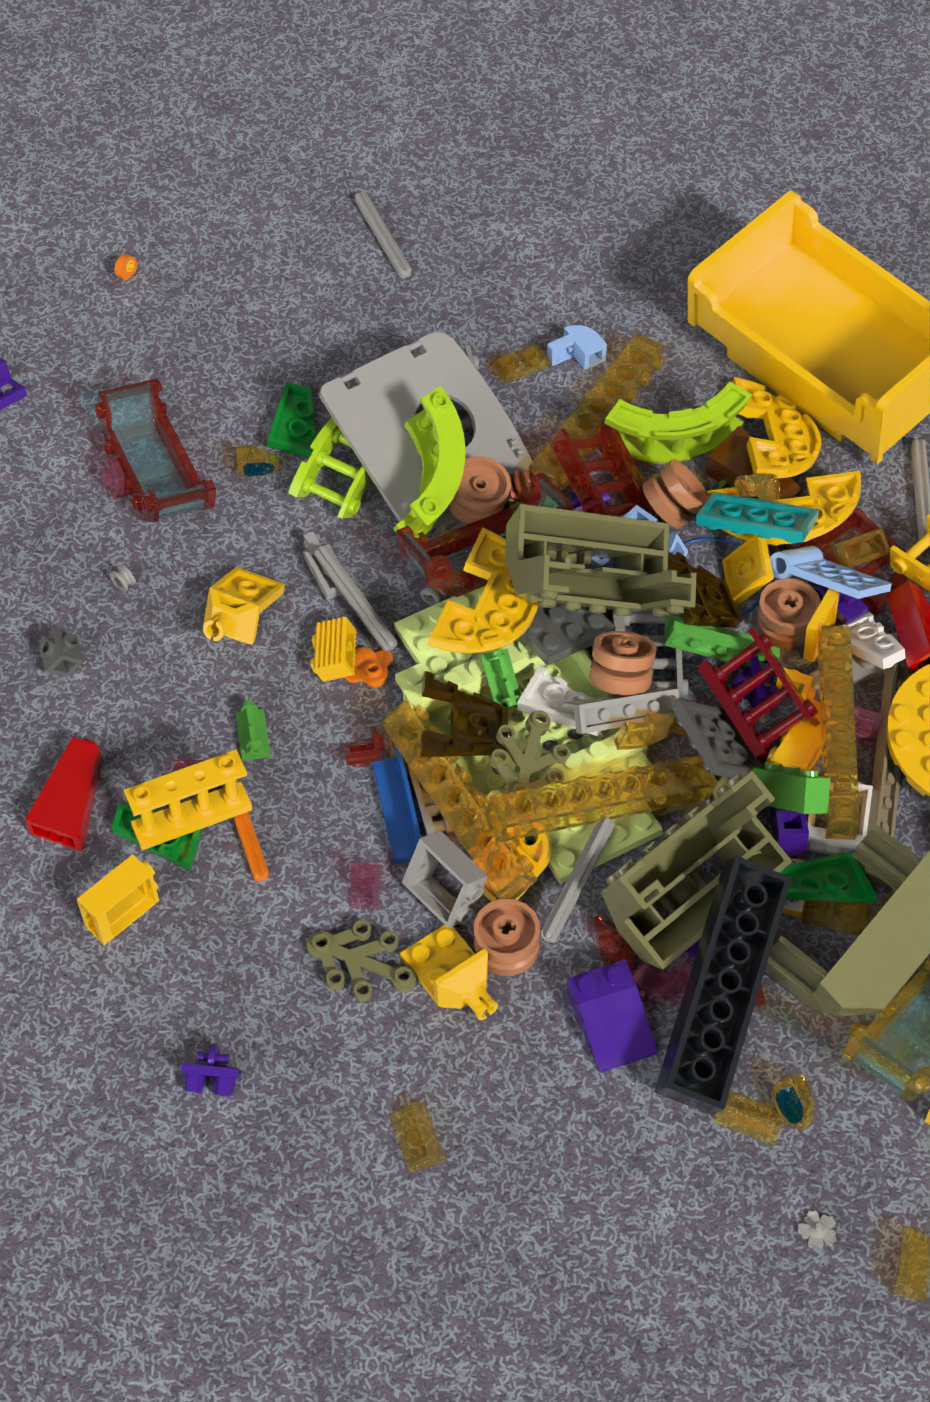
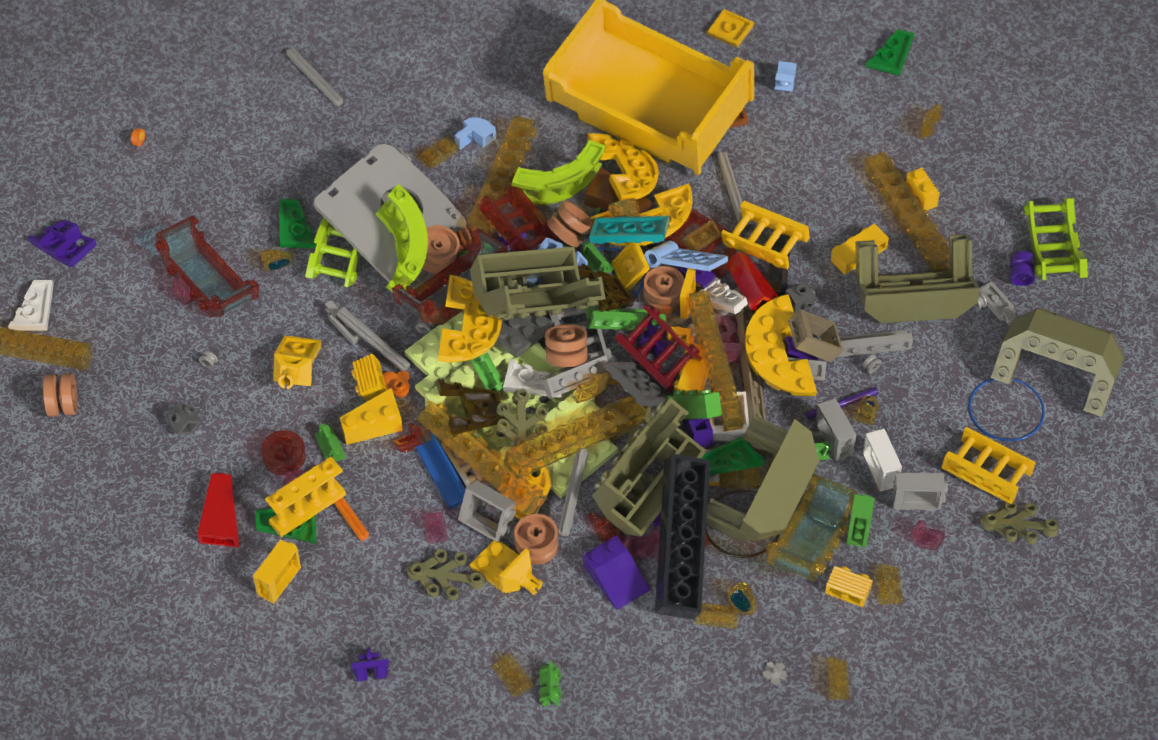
camera: 15 degrees left, 0 degrees up
(168, 733) = (275, 459): none -> clear red wheel
(320, 709) = (372, 419): none -> yellow wedge
(472, 1153) = (550, 676): none -> bright green hinge
(700, 550) = (595, 258): none -> bright green hinge
(789, 1024) = (725, 552): none -> dark brown piece
(870, 690) = (729, 328): none -> clear pink bracket

